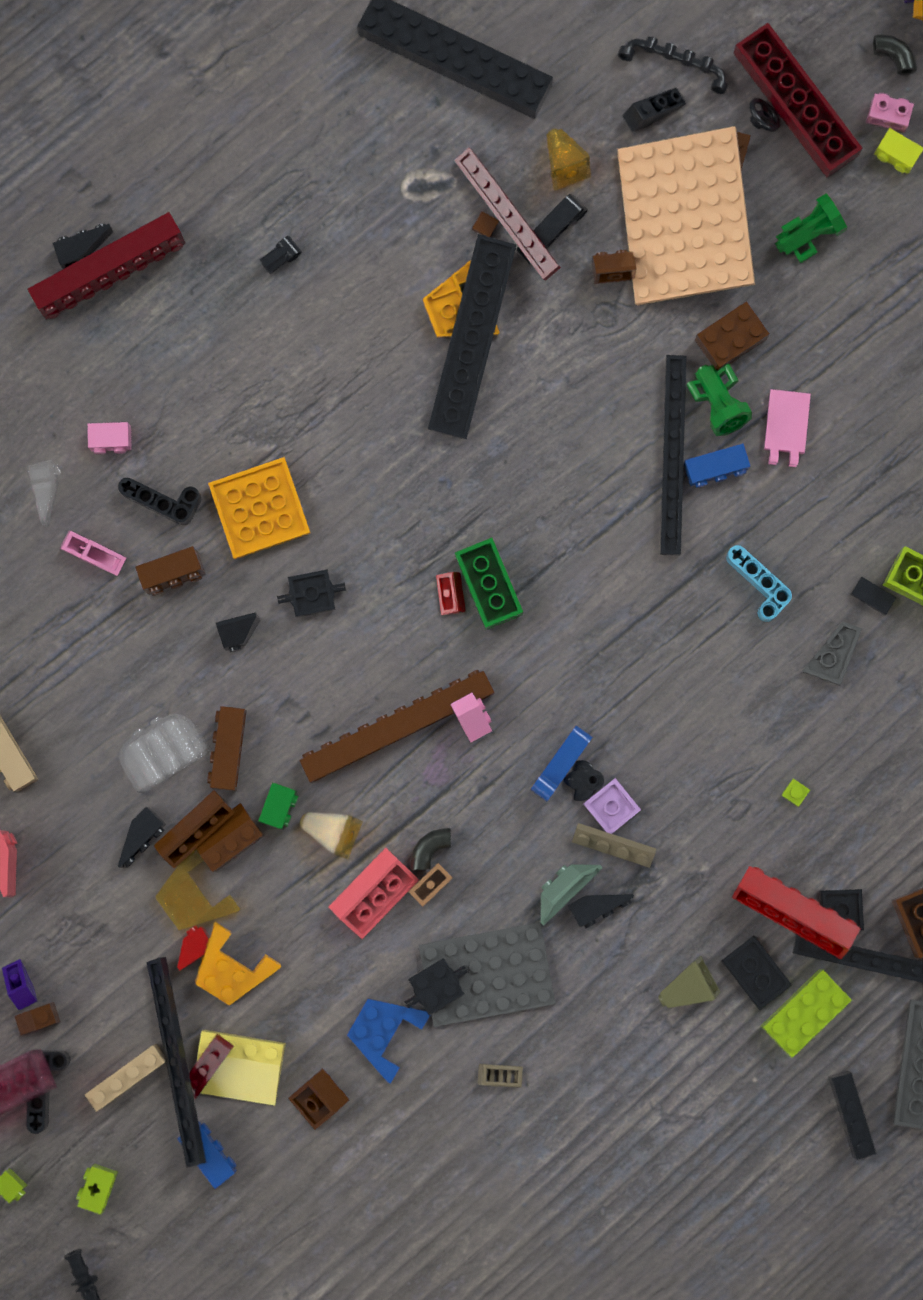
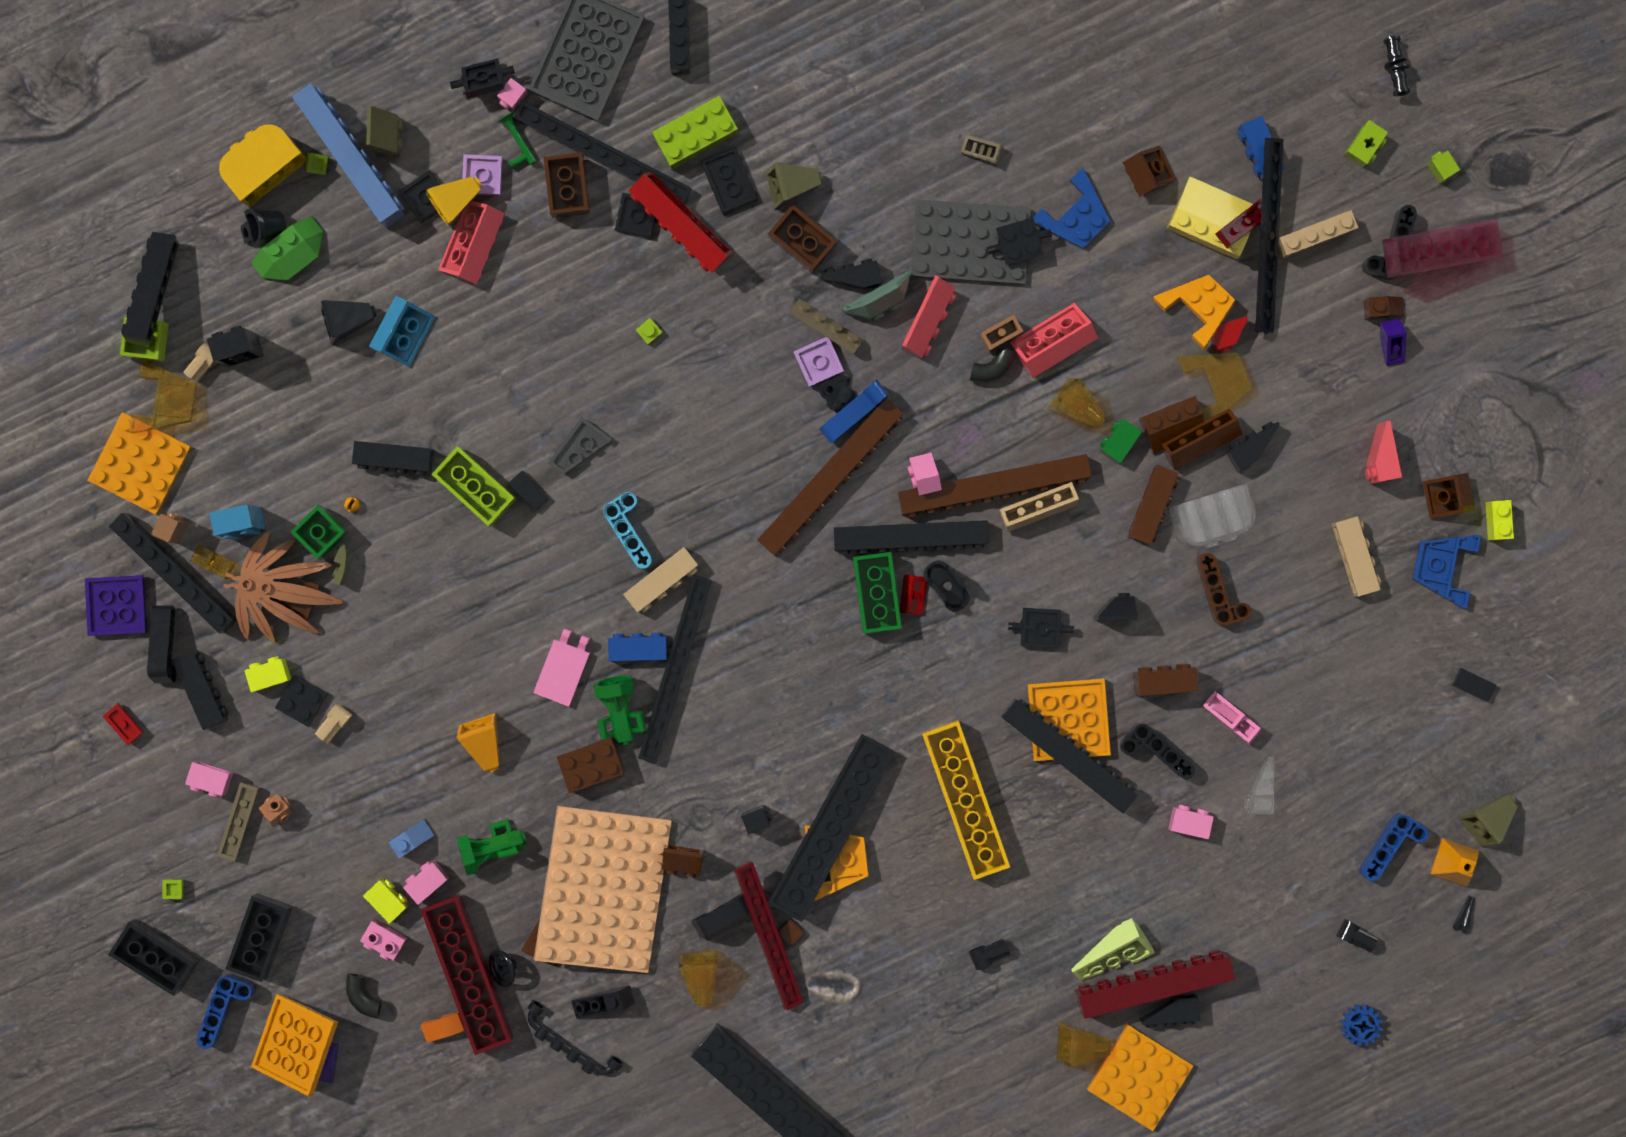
camera: 170 degrees left, 5 degrees up
(98, 174) = (1140, 1077): none -> light orange plate
(140, 680) = (1218, 587): none -> reddish brown beam
(149, 298) = (1120, 946): none -> yellowish green wedge
(165, 188) = (1080, 1046): none -> clear yellow slope
(250, 469) = (1068, 755): none -> black brick
(344, 399) = (965, 799): none -> yellow brick
(344, 714) = (1039, 507): none -> tan brick
(408, 598) = (954, 599): none -> black piece
(469, 651) = (911, 535): none -> black brick
(510, 880) = (928, 318): none -> coral slope
(550, 325) = (756, 819): none -> black brick
(567, 690) = (830, 476): none -> reddish brown brick
(663, 929) = (802, 238): none -> reddish brown brick
(712, 540) = (660, 580): none -> tan brick
(806, 43) = (442, 1027): none -> orange slope
(849, 331) = (481, 741): none -> light orange slope
(863, 179) = (426, 882): none -> bright pink brick
(891, 217) = (411, 838): none -> medium blue slope

